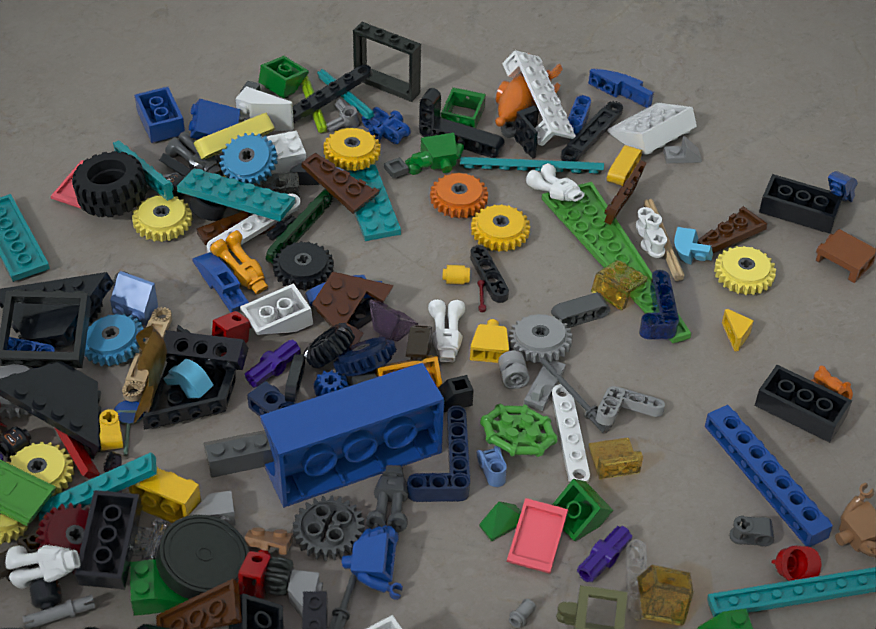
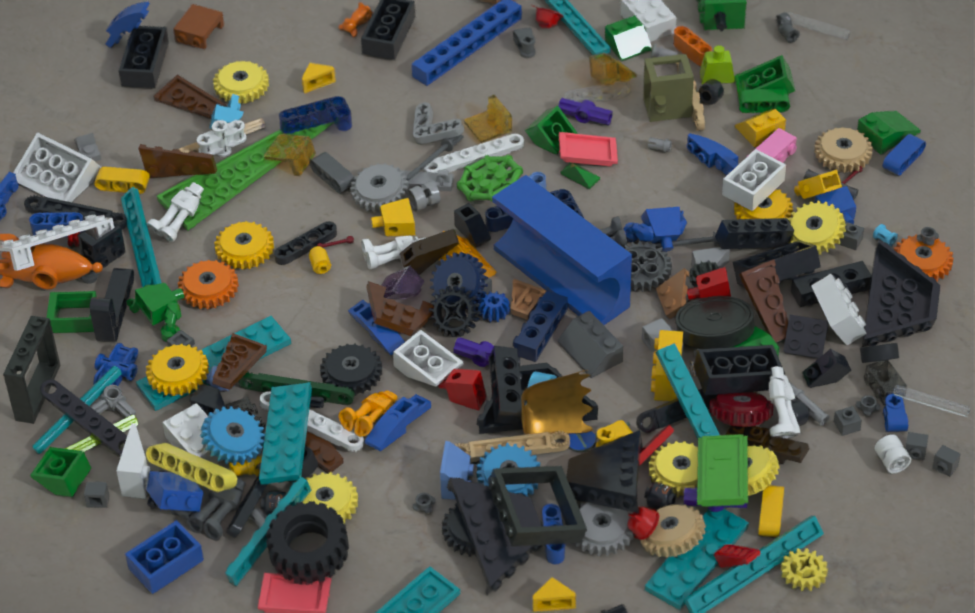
camera: 105 degrees left, 0 degrees up
(295, 378) = (502, 325): black beam -> none

